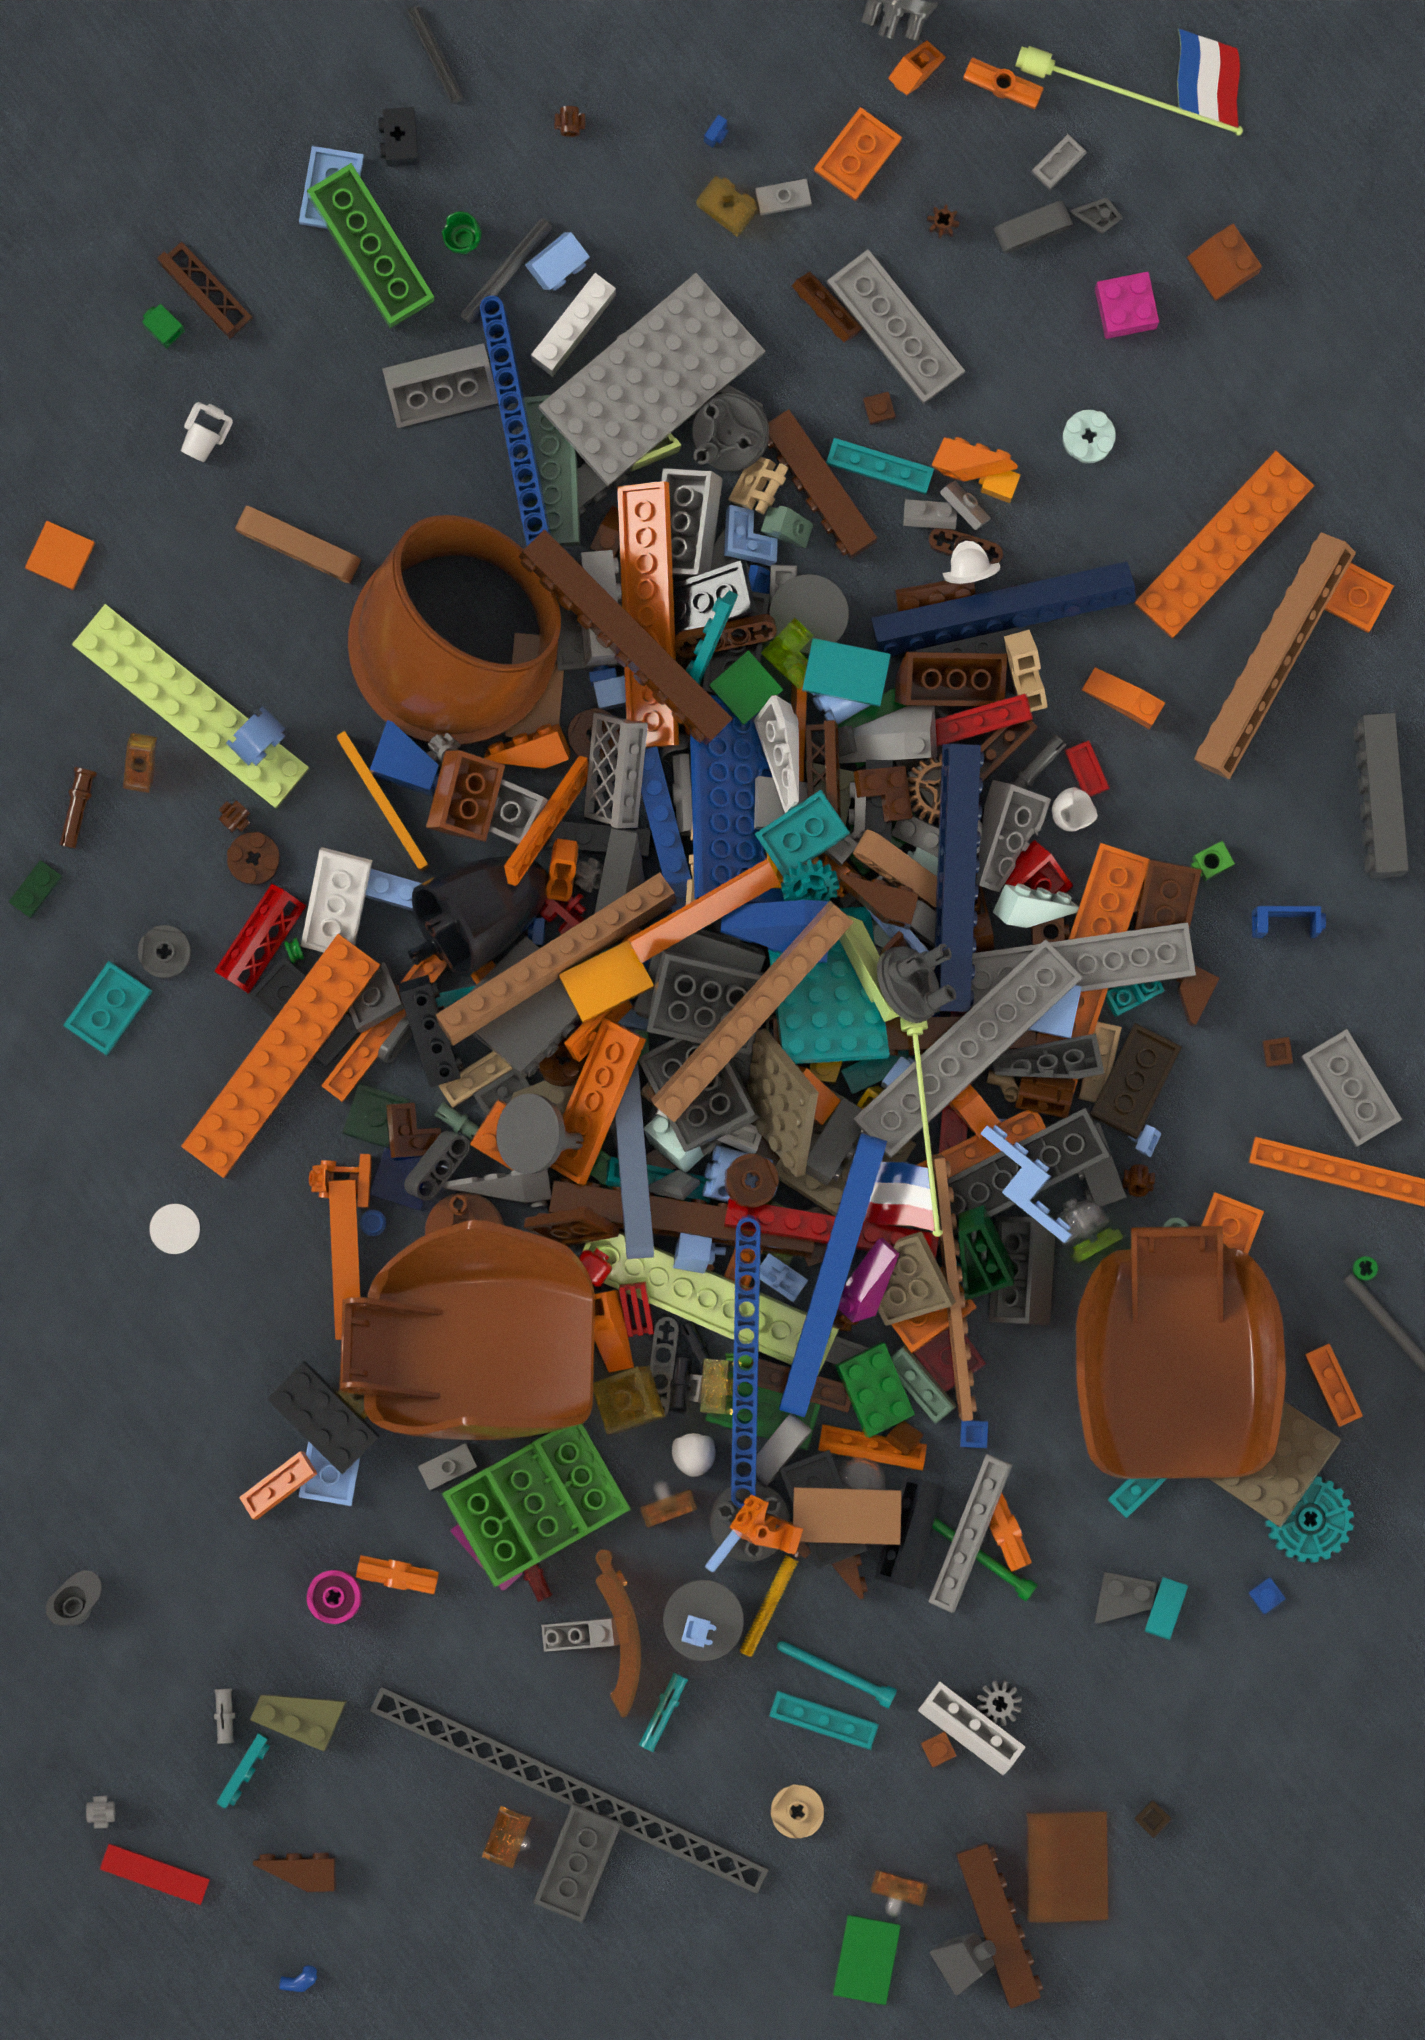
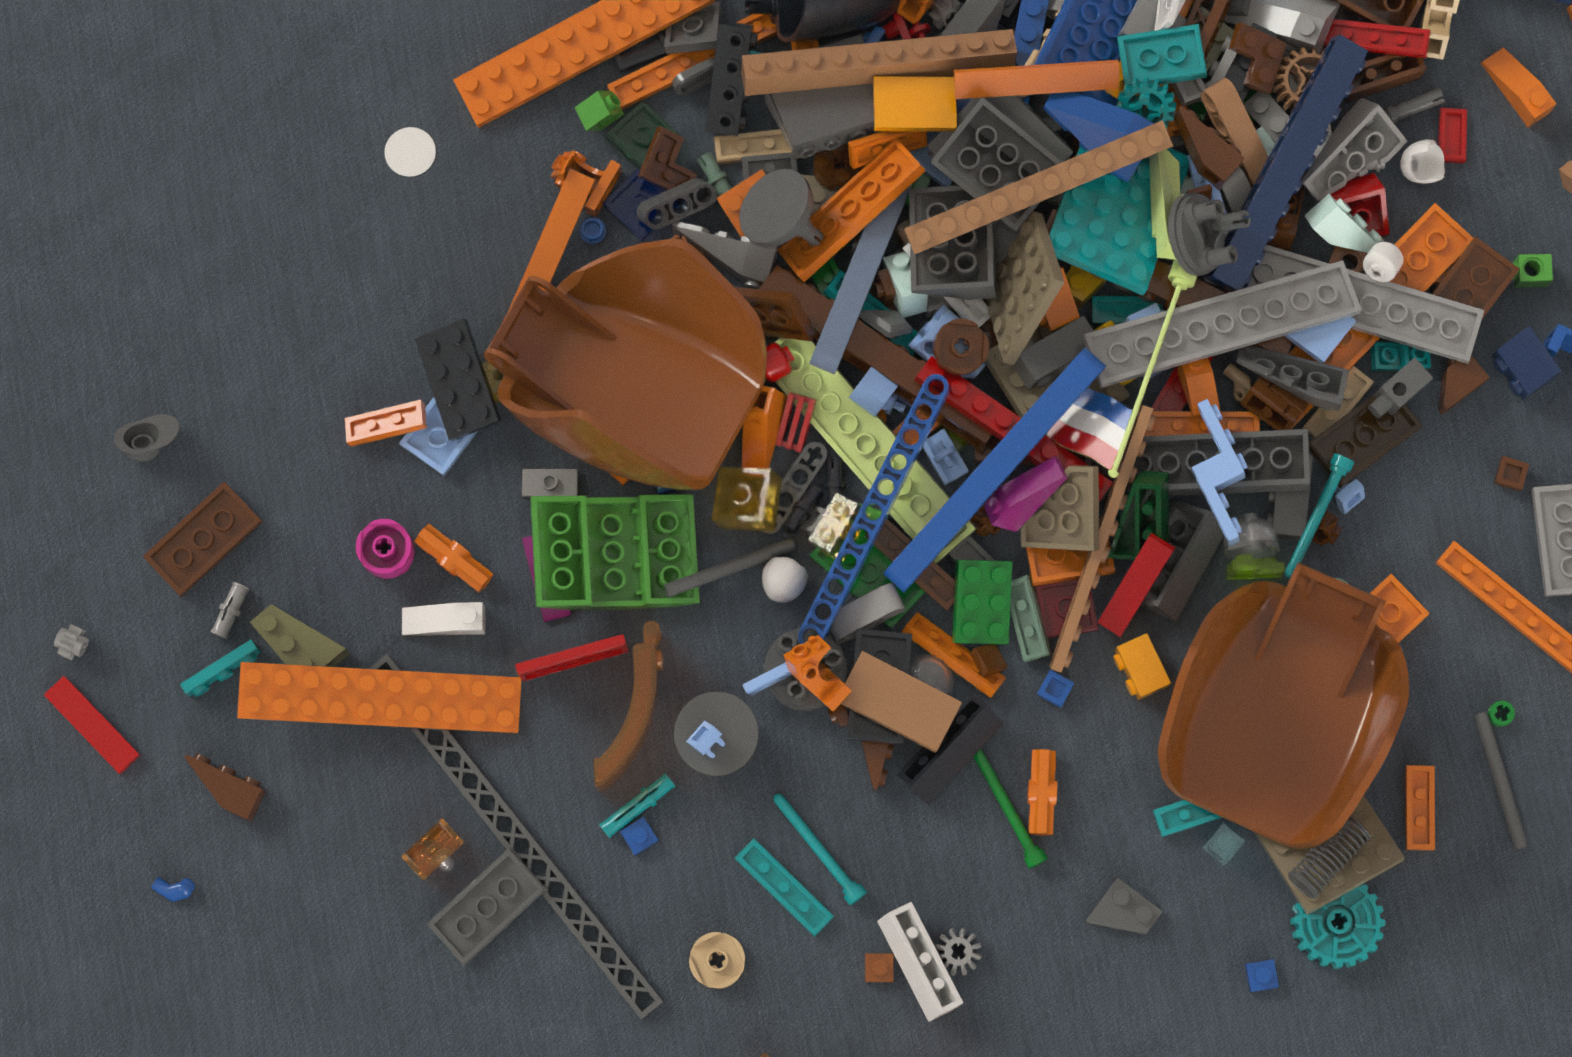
camera: 30 degrees right, 5 degrees down
(168, 1665) = (202, 539): none -> reddish brown plate
(326, 1113) = (599, 110): none -> bright green brick
(395, 1730) = (379, 697): none -> orange plate
(415, 1633) = (444, 619): none -> white slope
(537, 1582) = (579, 627): clear red pin -> none
(545, 1613) = (572, 658): none -> red tile
(580, 1634) = (594, 695): light grey slope -> none
(642, 1466) = (729, 567): none -> dark grey piece
(656, 1153) = (884, 287): none -> reddish brown plate
(667, 1505) = (735, 616): clear orange piece -> none
(677, 1737) = (639, 836): none -> blue plate
(768, 1607) = (783, 755): yellow axle -> none
(970, 1533) = (1007, 777): light grey tile -> none
(1001, 1313) = (1136, 584): none -> red tile
(1039, 1379) = (1141, 667): none -> light orange brick
(1080, 921) = (1383, 261): none -> white head
(1128, 1123) = (1339, 468): none -> teal piece
(1151, 1018) = (1400, 389): none -> dark grey torso
(1166, 1608) = (1160, 940): teal slope -> none
(1181, 1499) = (1223, 844): none -> clear light blue brick
(1244, 950) = (1525, 363): none -> dark blue slope
(1289, 1438) = (1306, 885): none -> dark grey piece

